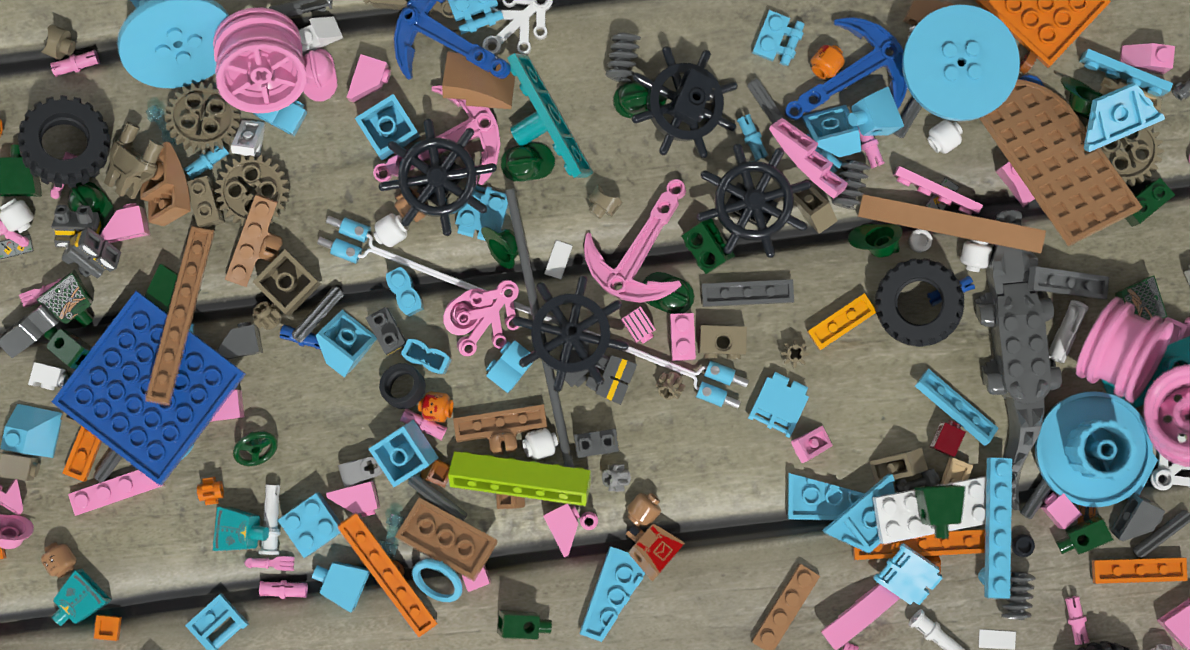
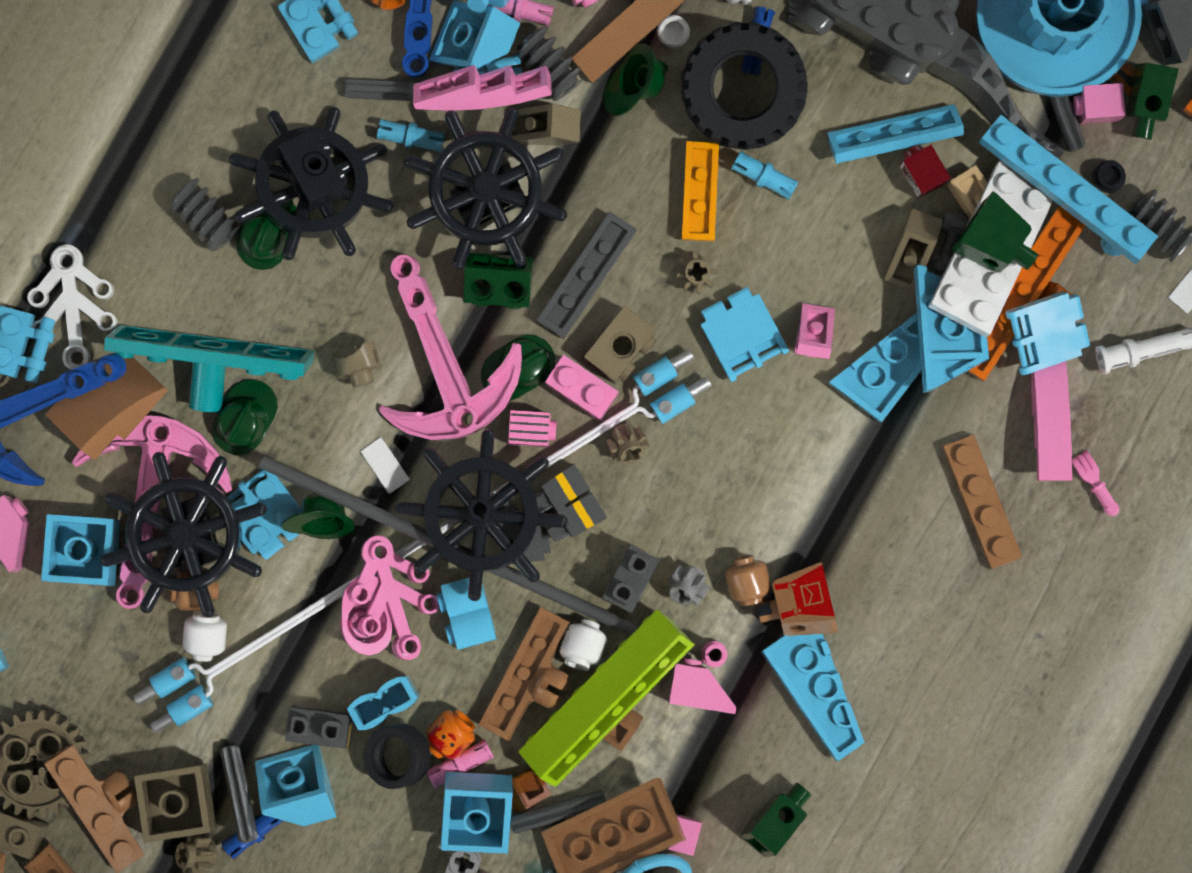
camera: 50 degrees left, 0 degrees up
(402, 285) = (278, 669): medium azure brick -> none
(878, 351) = (764, 175): none -> medium azure pin

